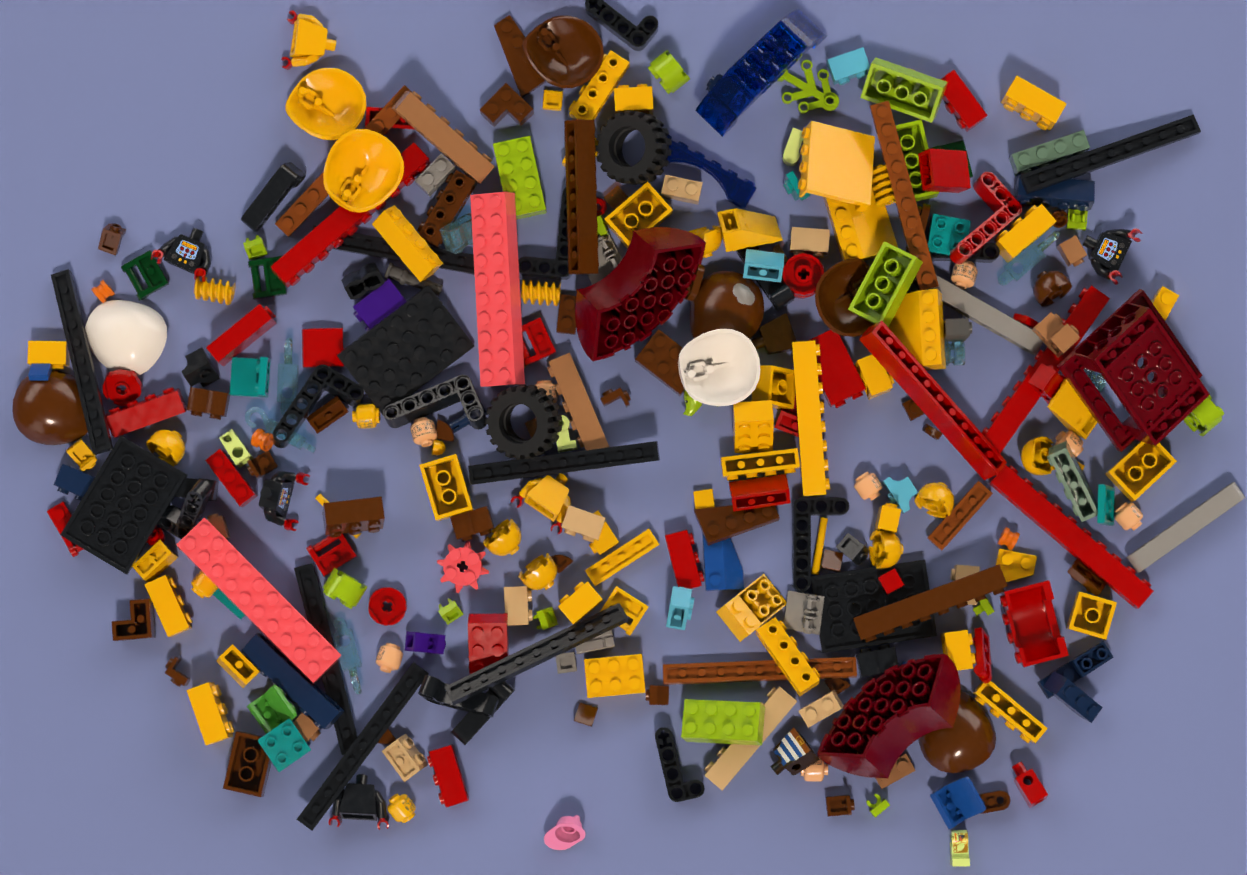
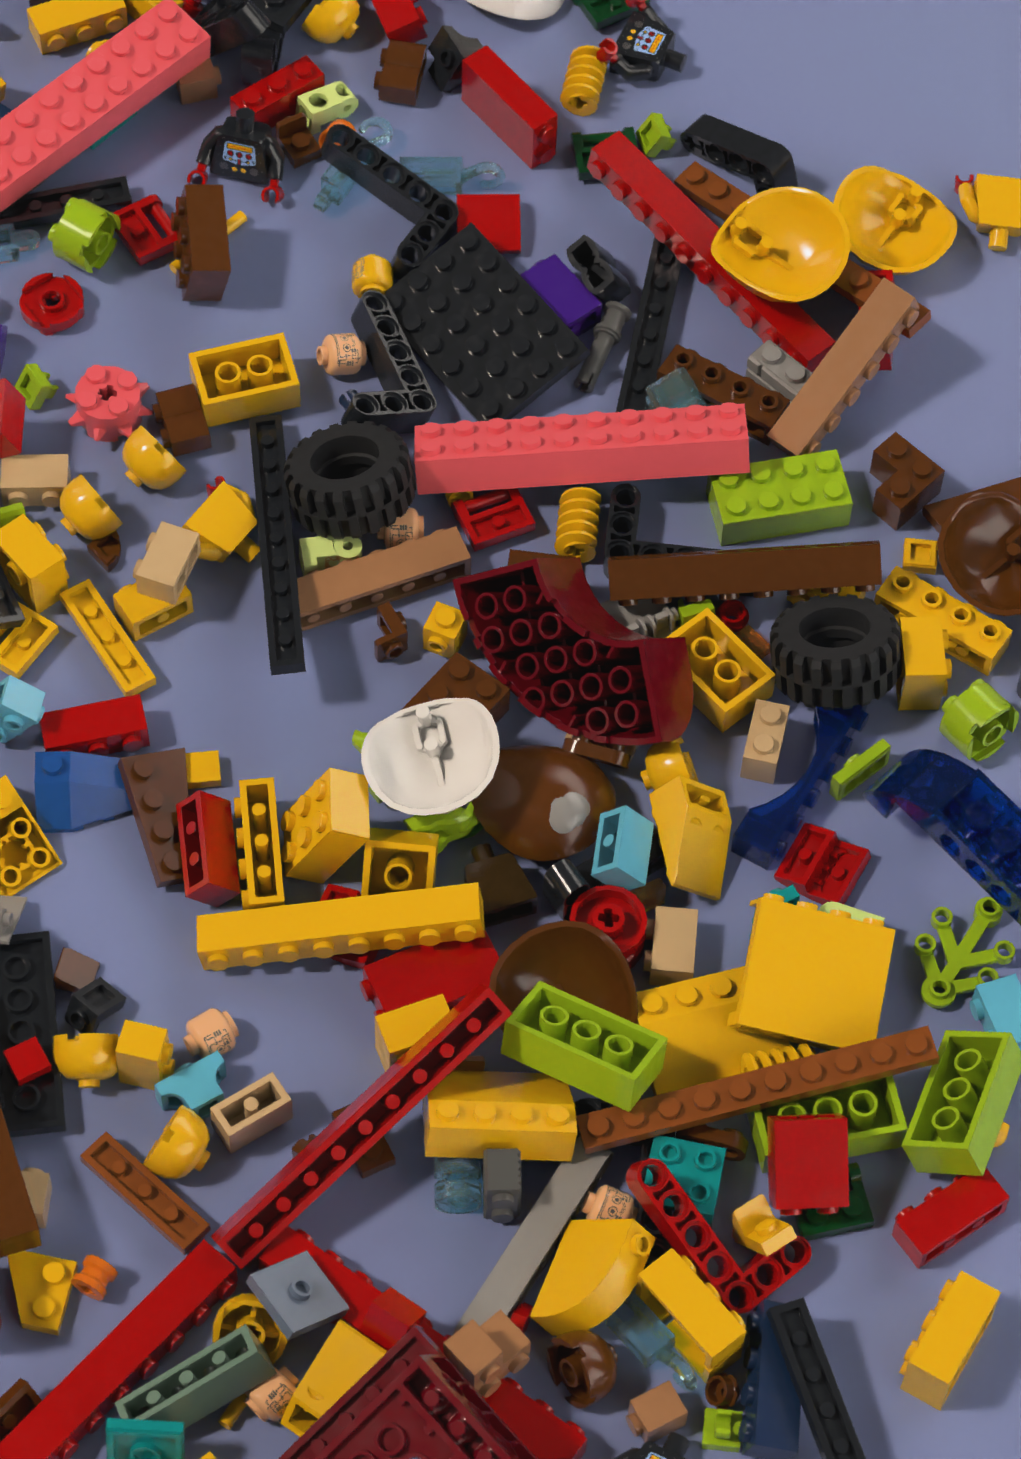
camera: 85 degrees right, 25 degrees down
(250, 377) = (441, 129): teal bracket -> none
(327, 414) = (376, 225): reddish brown plate -> none
(407, 243) = (660, 324): yellow brick -> none
(438, 447) = (315, 375): yellow hinge -> none
(444, 431) = (339, 385): reddish brown tile -> none
(615, 367) = (444, 630): none -> yellow brick
(696, 138) = (859, 769): none -> lime plate
(755, 160) = (822, 865): none -> red slope
(806, 534) = (124, 929): black beam -> none
(819, 546) = (108, 954): yellow bar -> none
(916, 461) = (251, 1112): none -> tan brick
(978, 195) = (758, 1228): none -> yellow slope
(1004, 283) = (591, 1273): none -> yellow brick
(1026, 431) = (297, 1295): none -> sand blue plate
(1049, 153) = (855, 1374): sand green brick -> none

